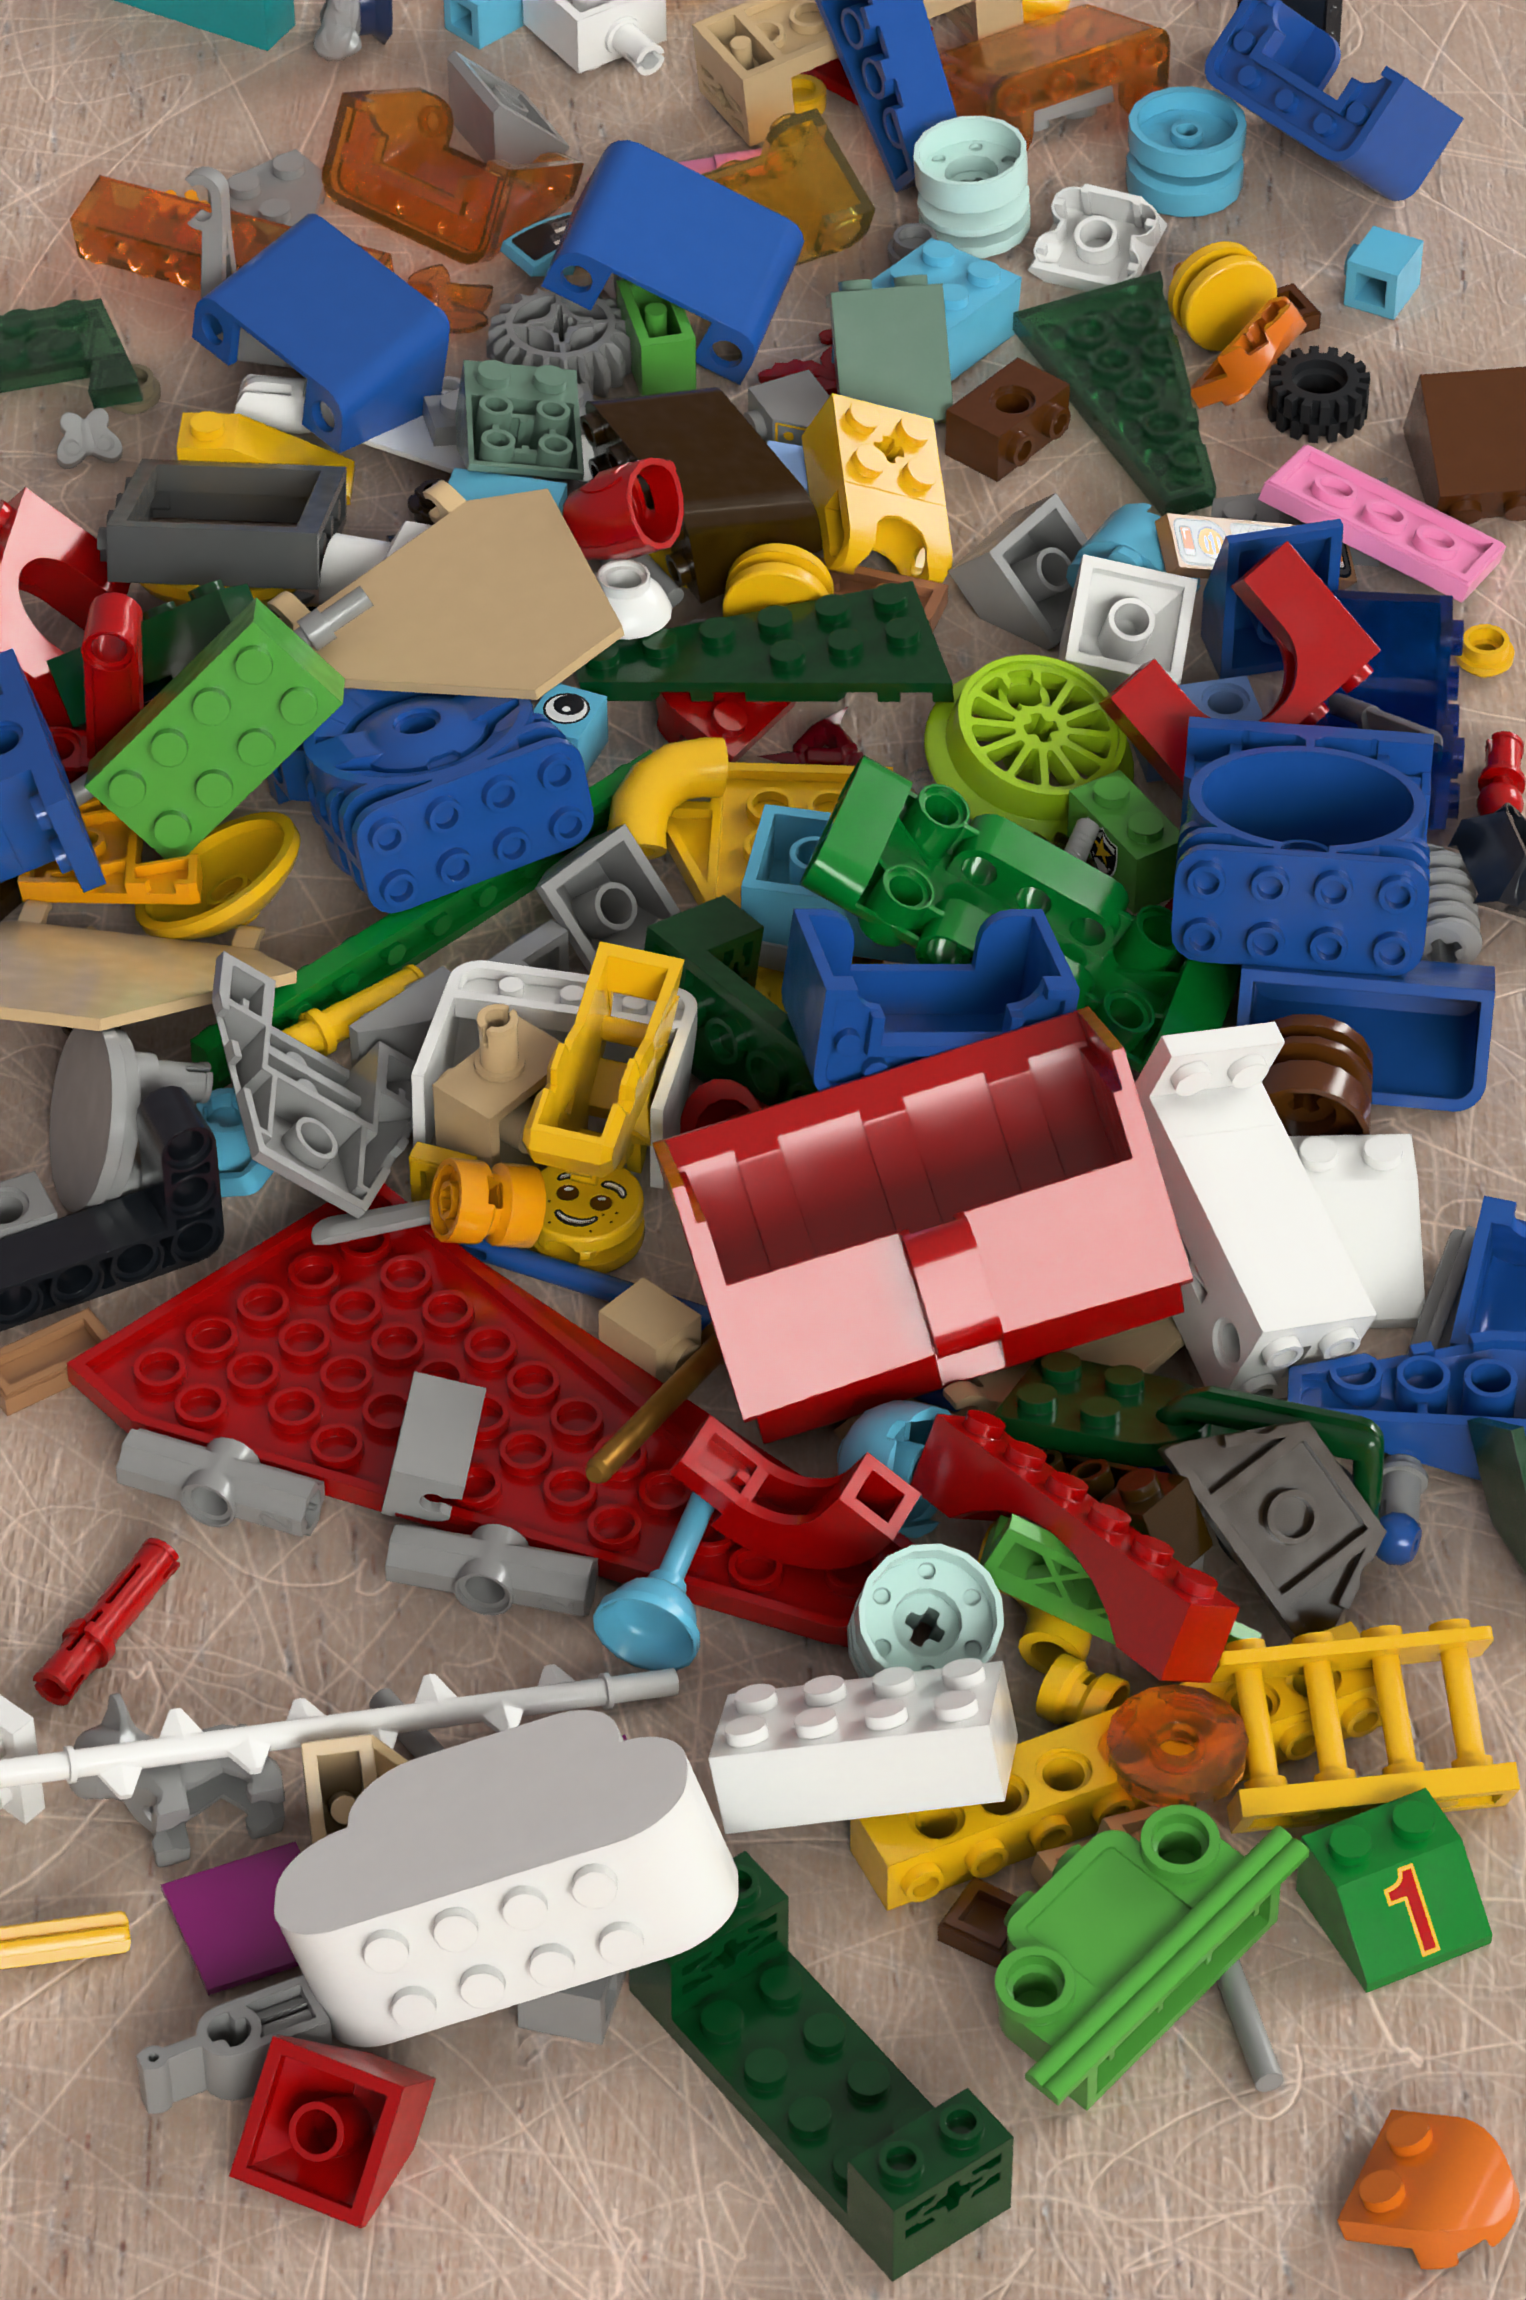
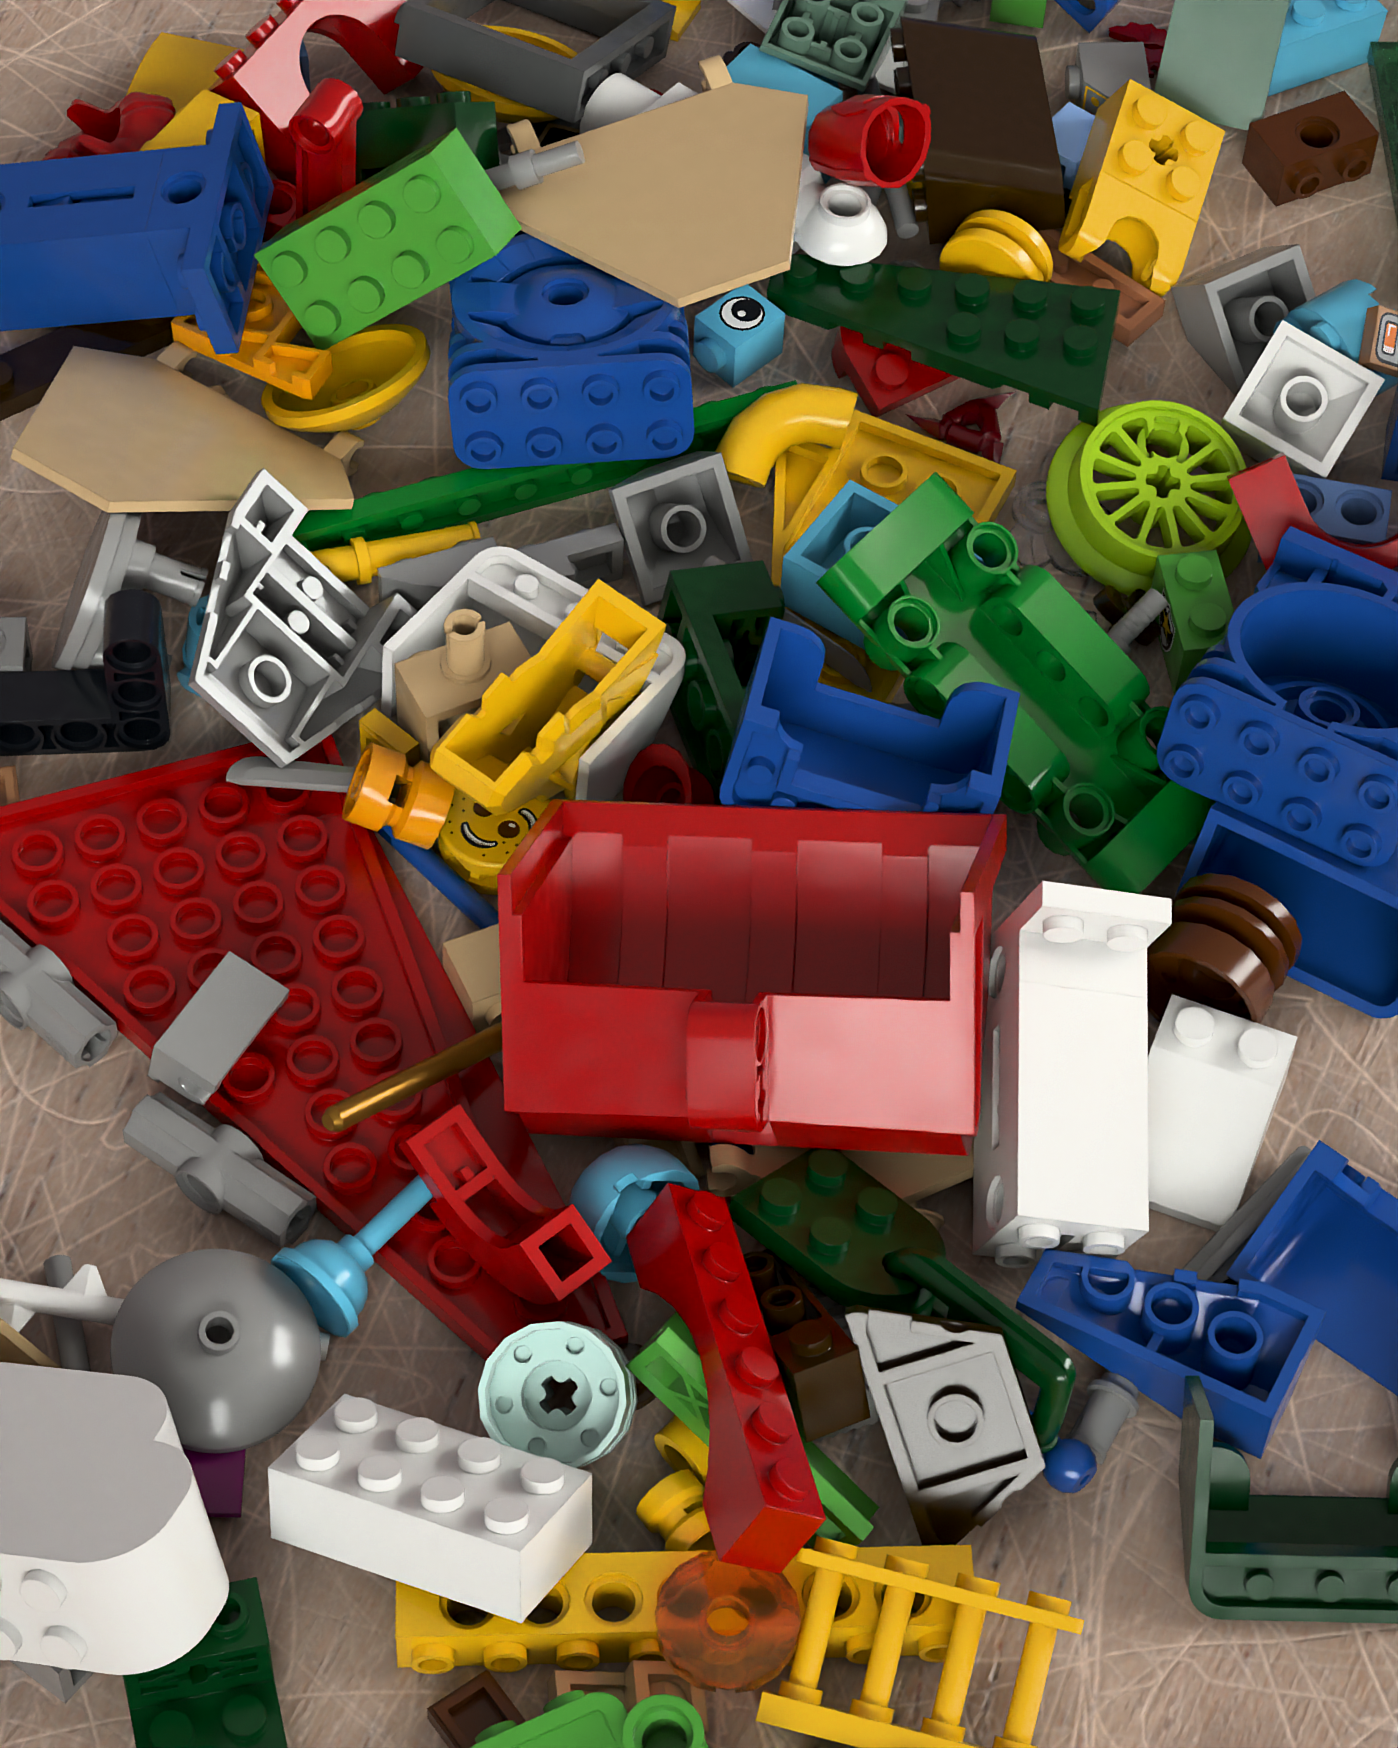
camera: 20 degrees right, 10 degrees up
(543, 1669) = (229, 1391): none -> light grey dish

